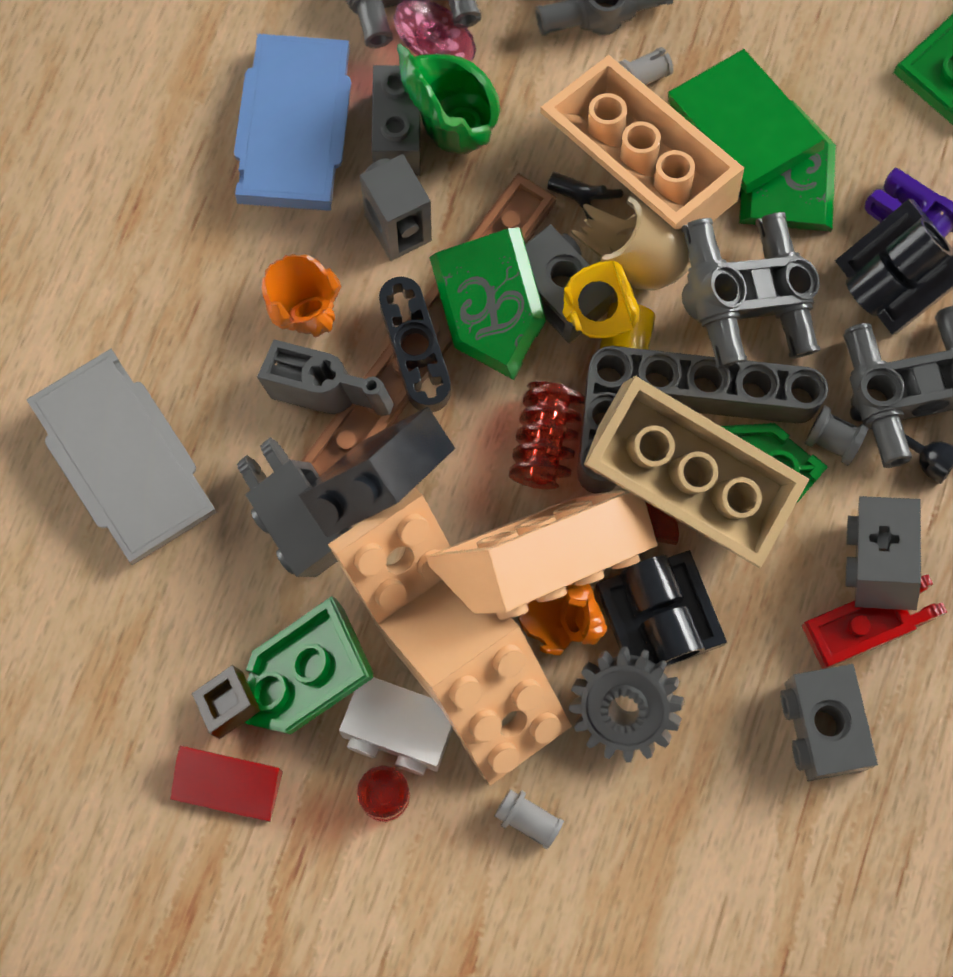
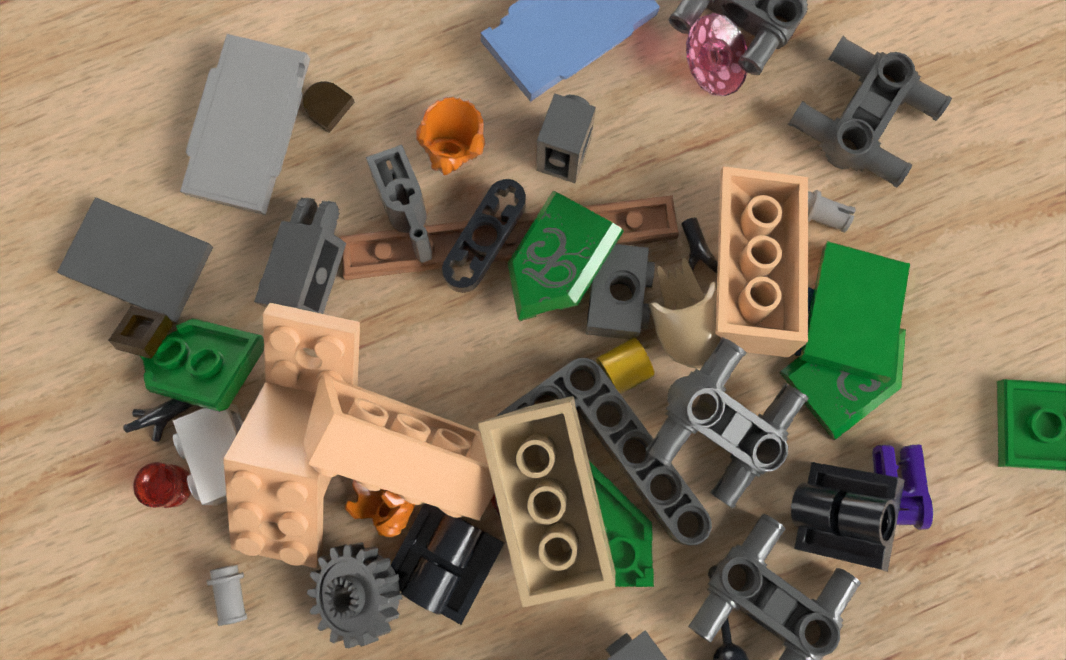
camera: 50 degrees right, 5 degrees up
(148, 657) = (135, 259): none -> dark grey tile
(166, 377) = (326, 104): none -> dark brown tile
(225, 783) = (93, 378): red slope -> none
(314, 750) = (156, 416): none -> black bar
(377, 472) = (357, 290): black brick -> none
(394, 118) = (632, 84): dark grey brick -> none
(453, 99) = (673, 101): green piece -> none
(544, 433) = (500, 375): clear red piece -> none
(627, 310) = (624, 355): yellow piece -> none
(836, 435) = (681, 573): dark grey bush -> none

